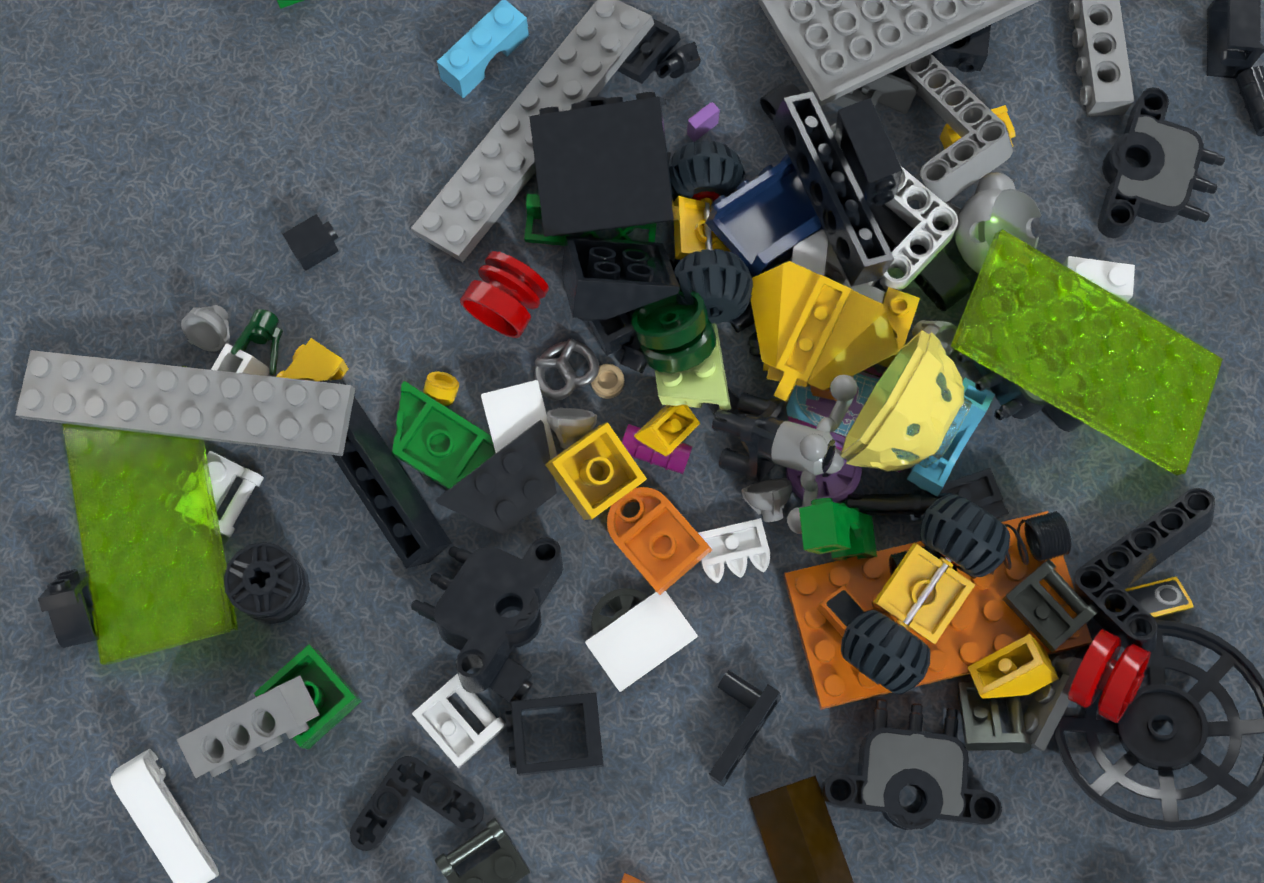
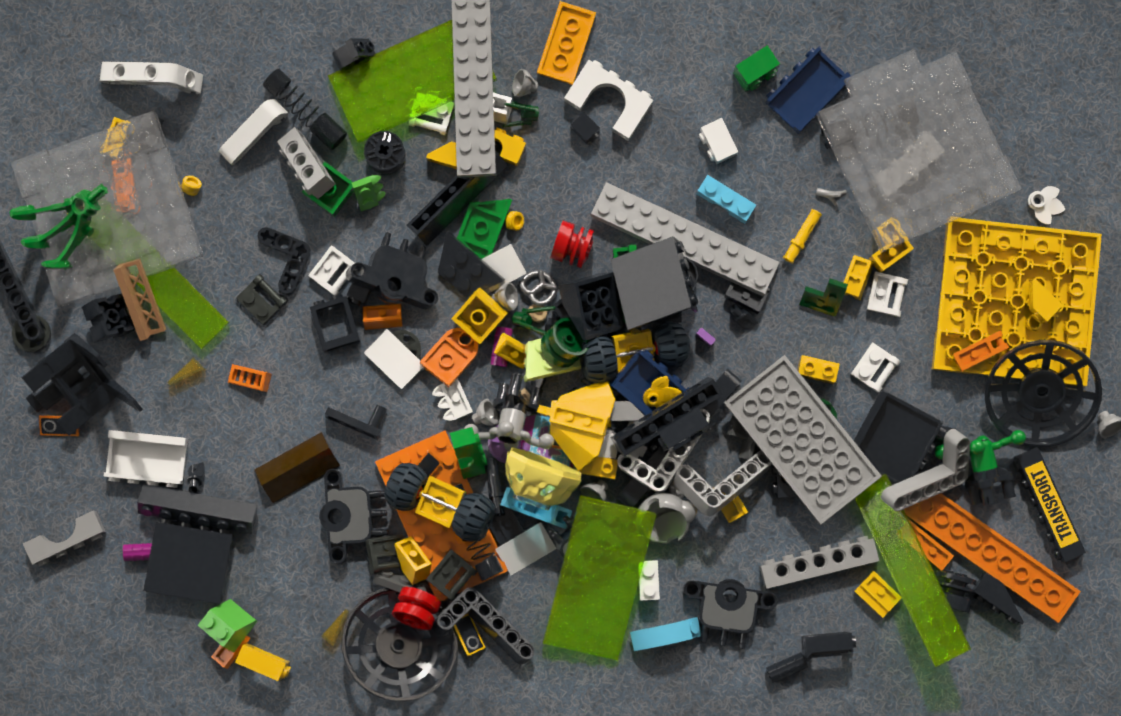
camera: 80 degrees right, 10 degrees up
(158, 247) = (566, 43): none -> light orange plate
(191, 688) = (323, 127): none -> black piece
(286, 156) = (595, 77): none -> white arch
(301, 476) = (444, 155): none -> yellow slope
(330, 627) = (368, 192): none -> bright green plate
(385, 43) = (718, 141): none -> white brick
(560, 647) = (382, 316): none -> orange slope
(617, 402) = (524, 320): none -> dark green plant
(787, 200) = (661, 391): none -> yellow plate
(1013, 474) = (525, 548): none -> white sticker
(1119, 844) = (333, 631): none -> clear yellow piece
(1195, 273) = (665, 634): none -> medium azure arch

